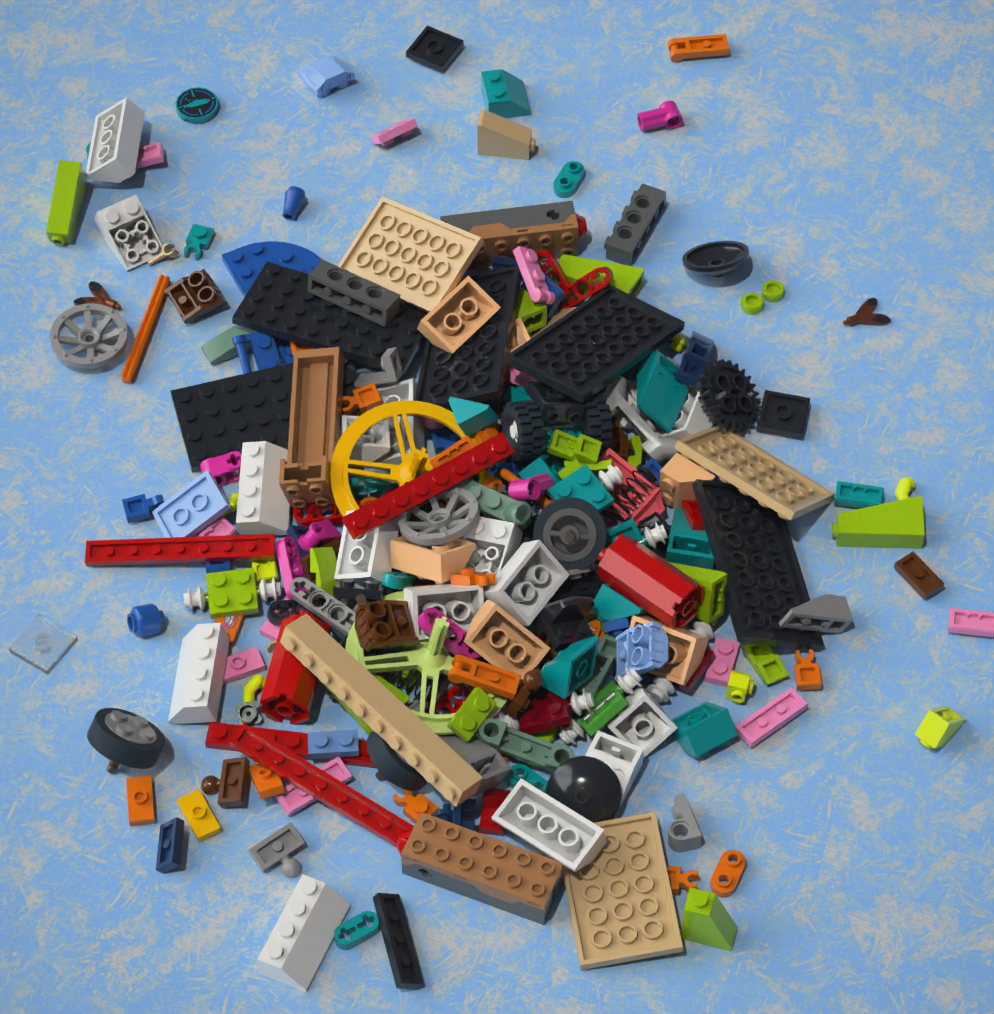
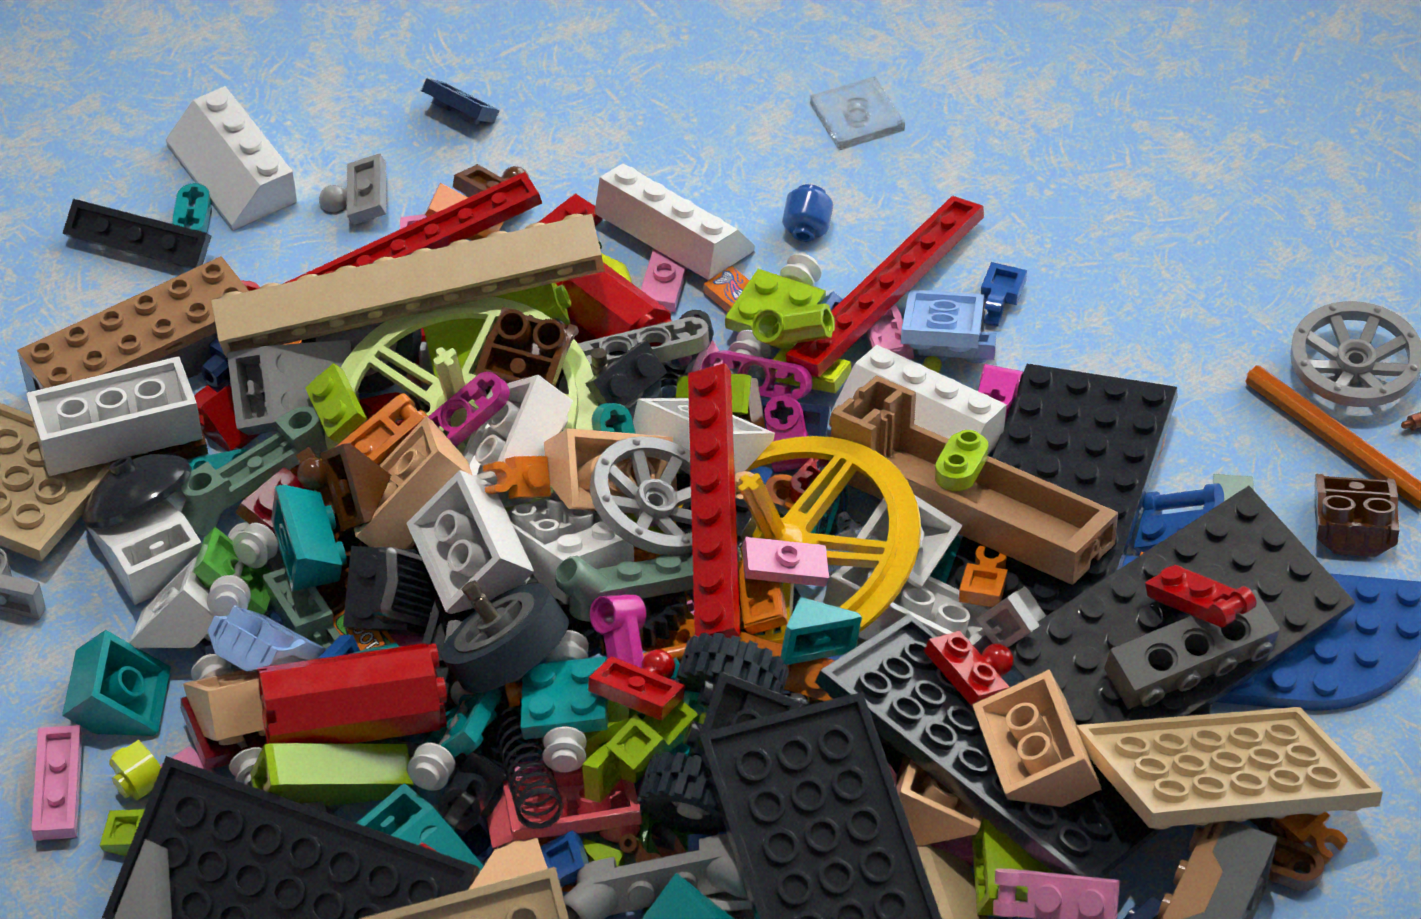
camera: 125 degrees right, 5 degrees down
(125, 739) = (628, 98): black wheel -> none
(140, 800) = (551, 109): orange plate -> none
(198, 815) = (481, 148): yellow plate -> none
(258, 561) = (795, 325): none -> lime piece
(306, 426) = (961, 460): none -> lime plate
(329, 290) = (1200, 595): none -> red plate
(429, 370) = (970, 672): none -> red plate
(437, 446) = (785, 561): none -> bright pink plate
(527, 656) = (354, 484): none -> reddish brown slope
(562, 455) = (640, 688): none -> red plate
(806, 672) = (81, 867): orange plate -> none

